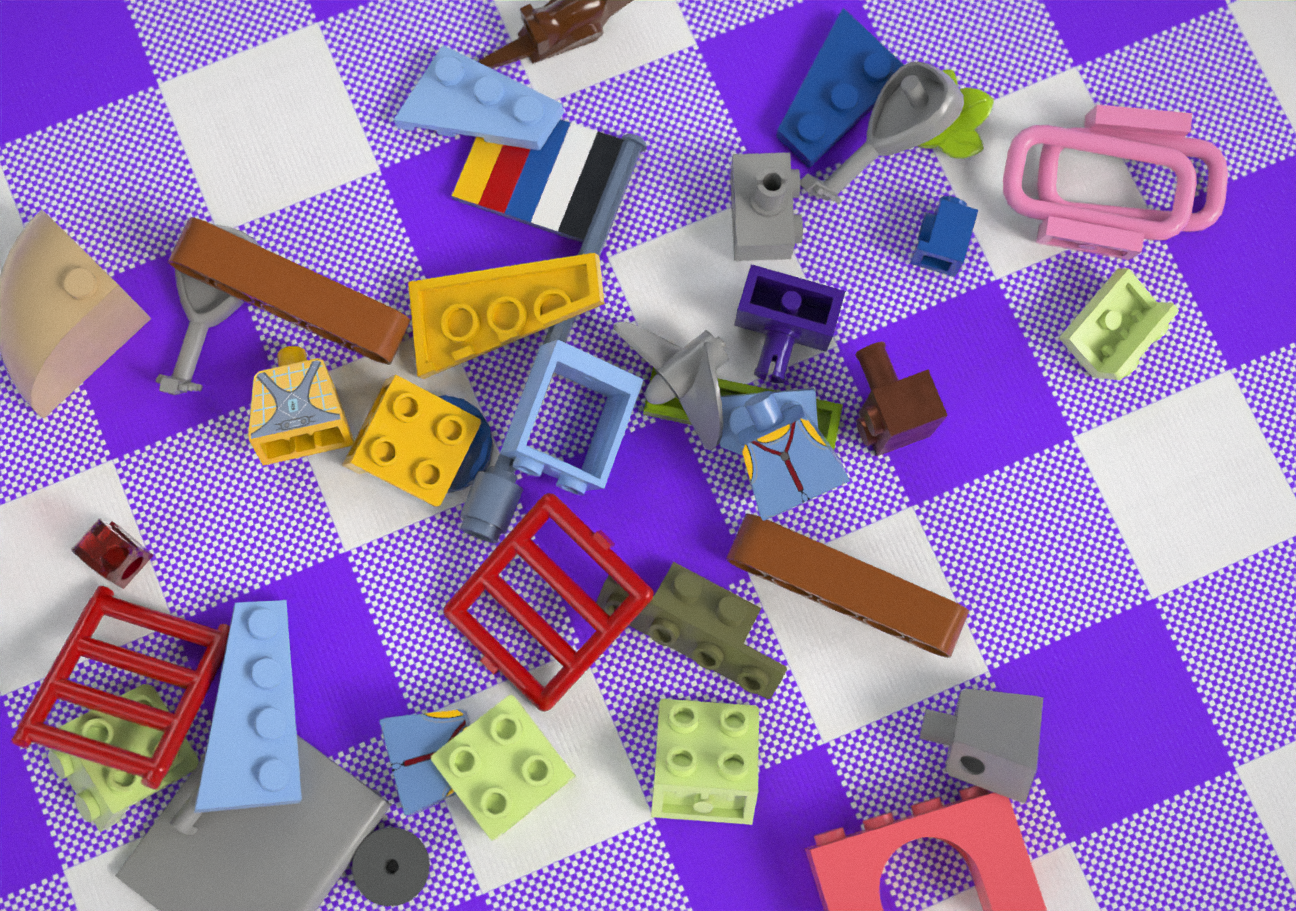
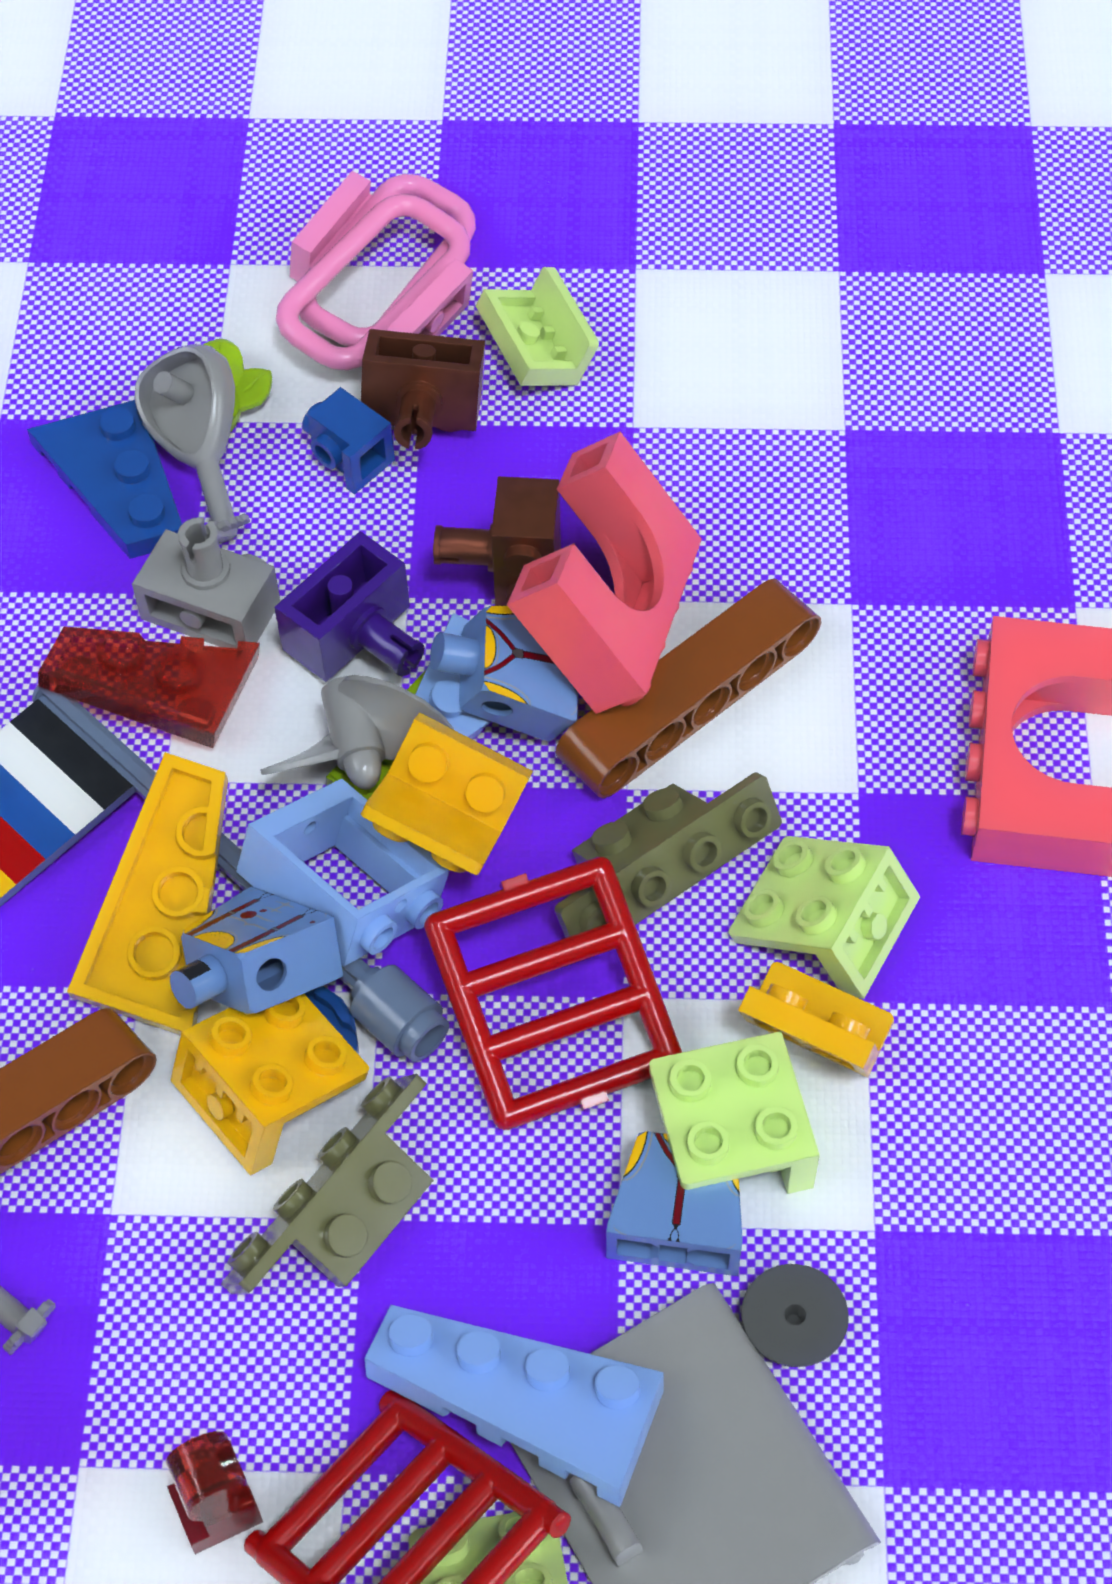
camera: 60 degrees left, 20 degrees down
(296, 410) = (155, 1176): yellow torso -> none
(345, 536) = (347, 1202): none -> olive bracket
(475, 391) = (256, 953): none -> medium blue torso
(607, 793) = (818, 1017): none -> yellow bracket
(654, 459) = (446, 795): none -> yellow bracket
(672, 212) = (160, 684): none -> clear red wing
(938, 507) = (598, 637): none -> coral arch
(990, 740) = (934, 609): light grey torso -> none
(1015, 266) = (422, 382): none -> copper brick

